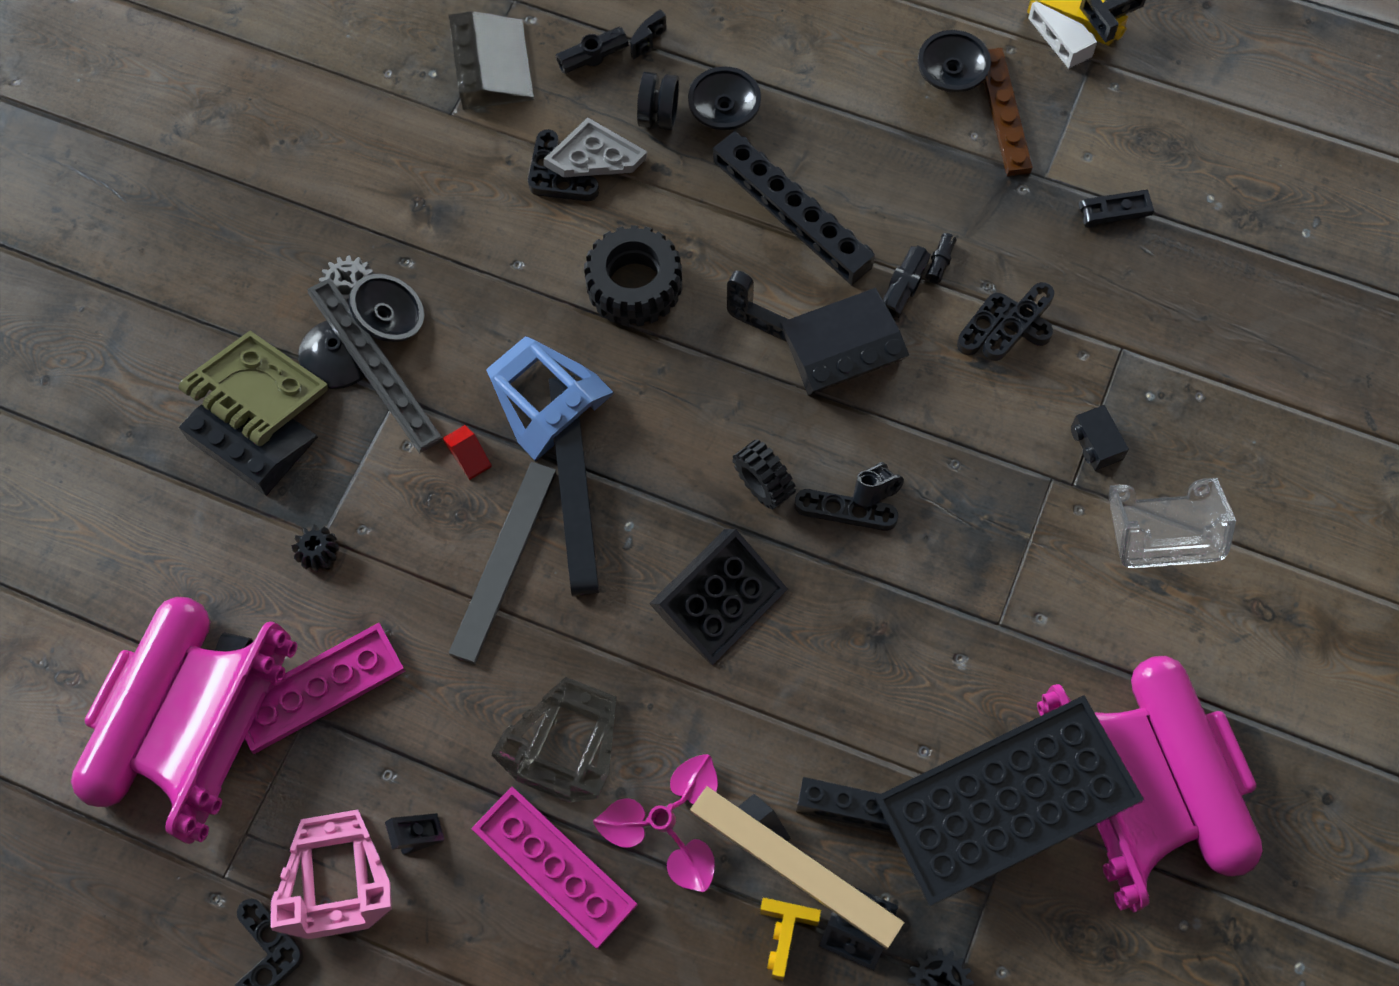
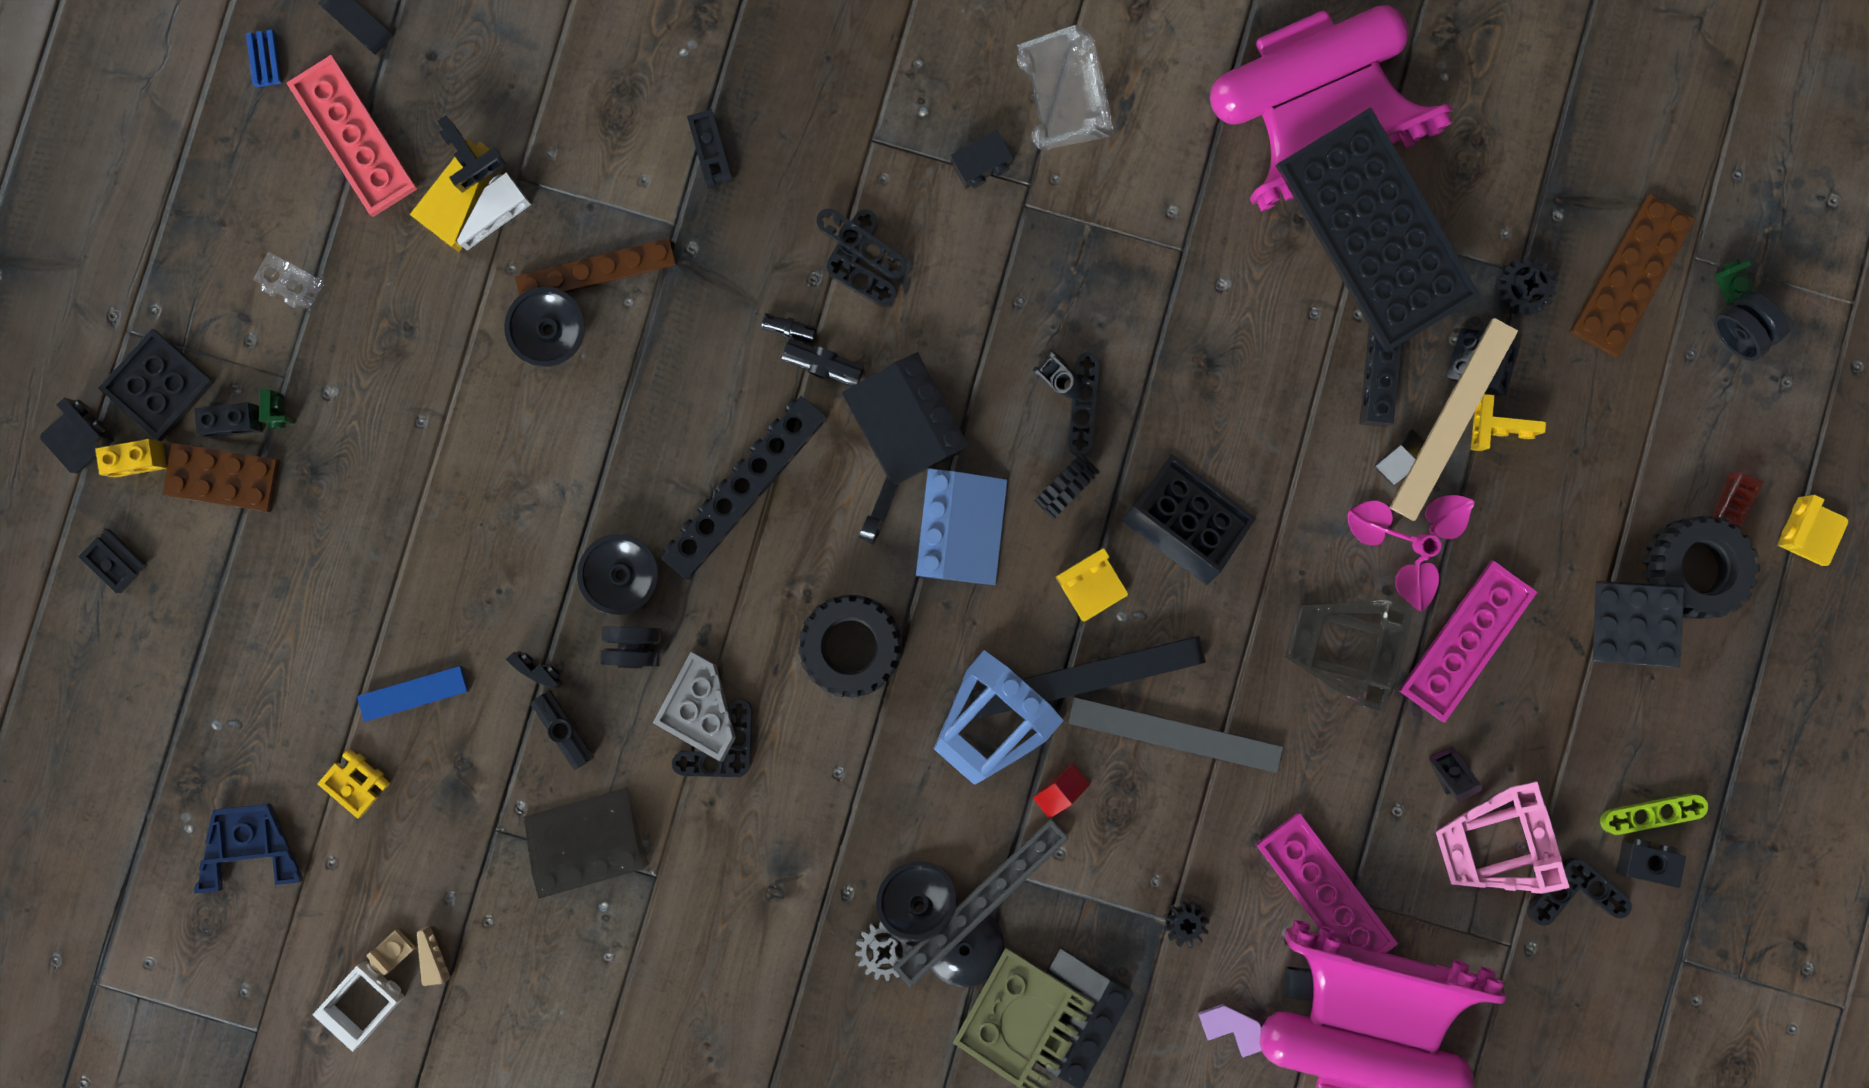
camera: 95 degrees left, 20 degrees up
(214, 577) = (1224, 1020): none -> lavender tile
(665, 496) = (1092, 585): none -> yellow bracket
(735, 383) = (961, 527): none -> medium blue slope

